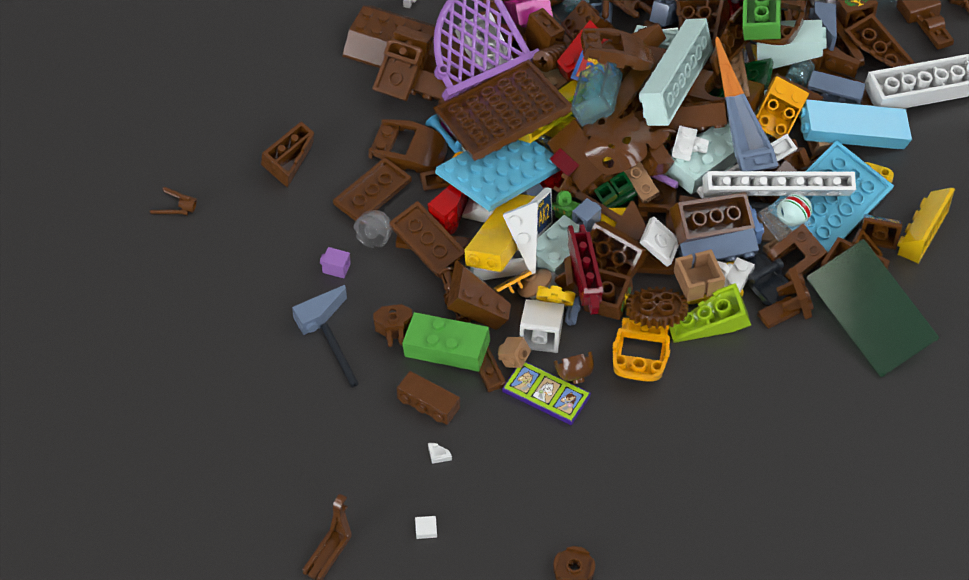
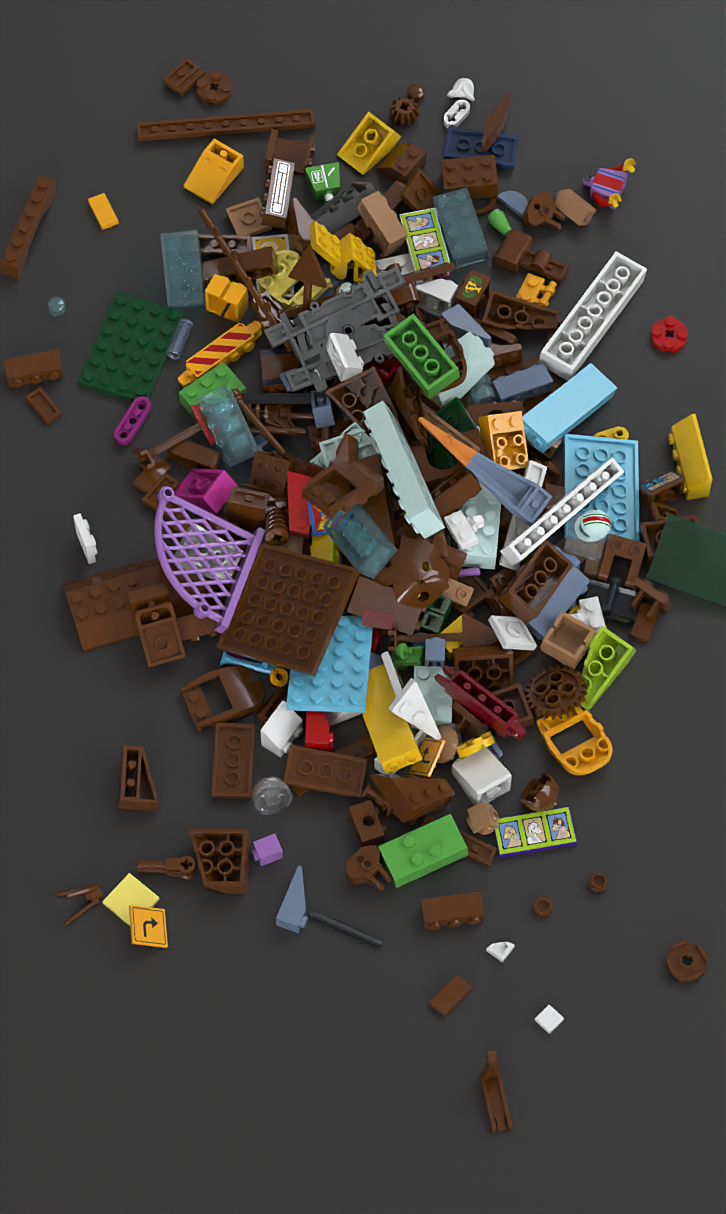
camera: 40 degrees left, 10 degrees up
(200, 250) = (148, 926): none -> light orange piece
(208, 228) = (129, 892): none -> light yellow tile
(259, 227) = (172, 867): none -> reddish brown connector
(297, 245) = (223, 858): none -> reddish brown wedge
(368, 455) = (450, 995): none -> reddish brown tile
(422, 187) = (281, 730): none -> white slope
(425, 295) = (367, 834): none -> reddish brown brick
(500, 447) = (542, 906): none -> reddish brown tile
(560, 461) = (598, 882): none -> reddish brown plate
(913, 39) = (533, 286): none -> light orange plate

